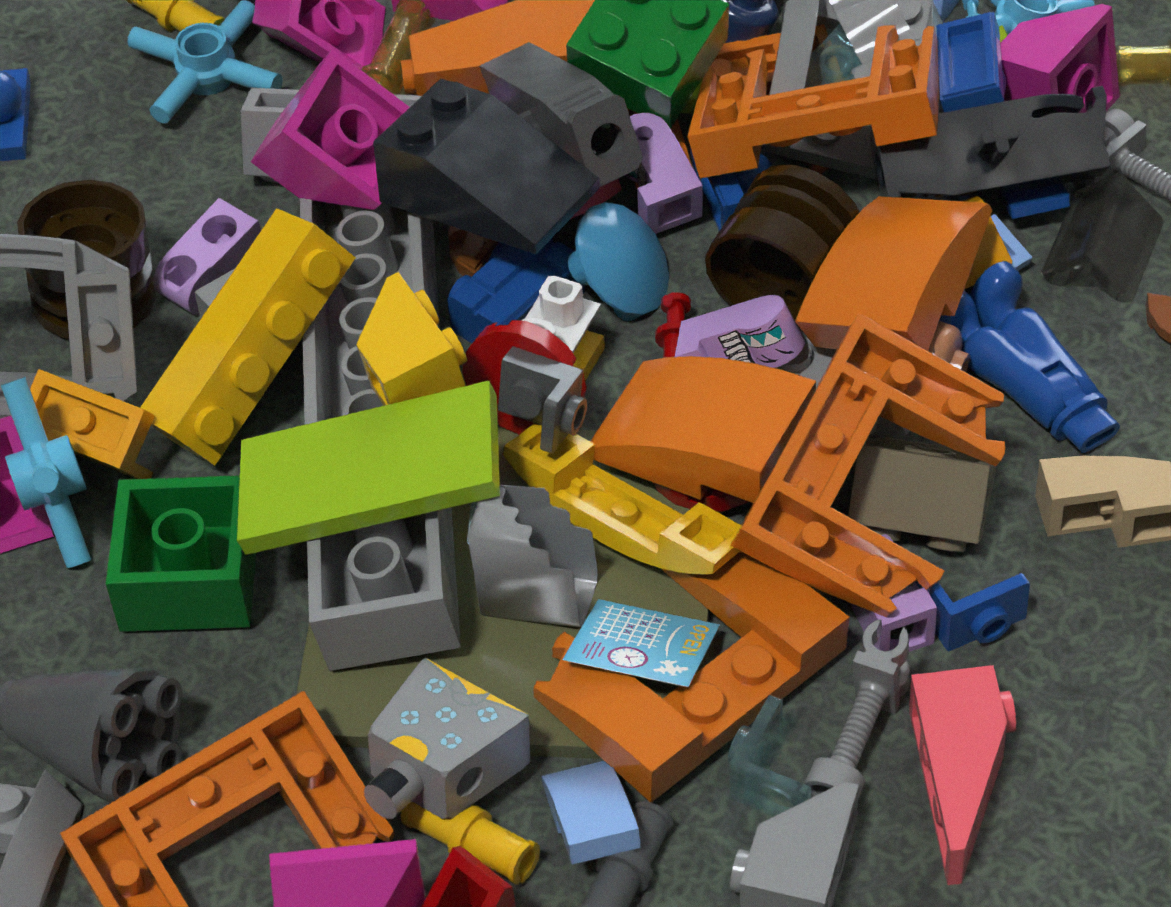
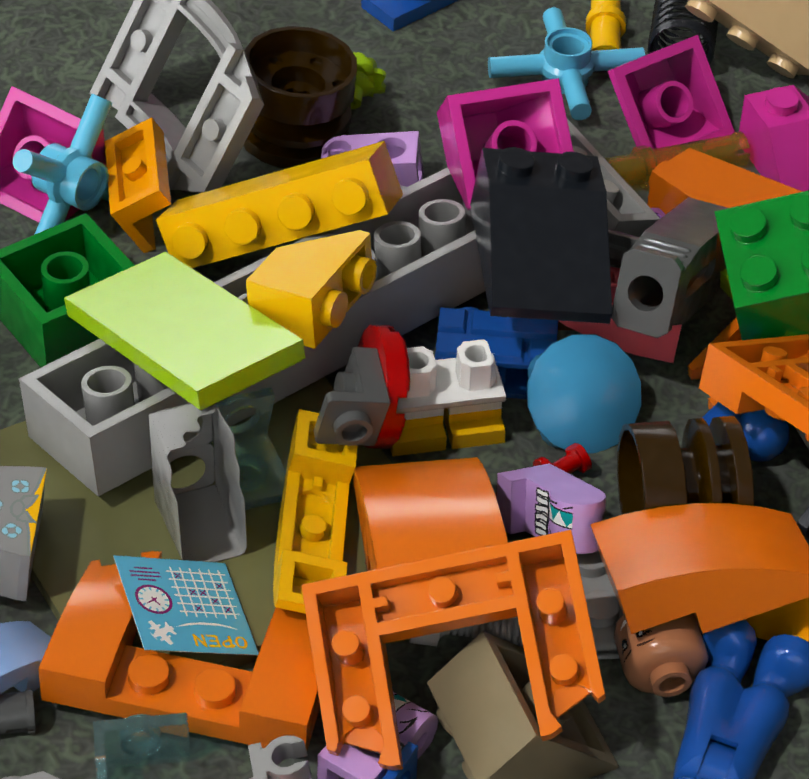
camera: 50 degrees right, 5 degrees down
(666, 180) = (673, 385): lavender leg -> none

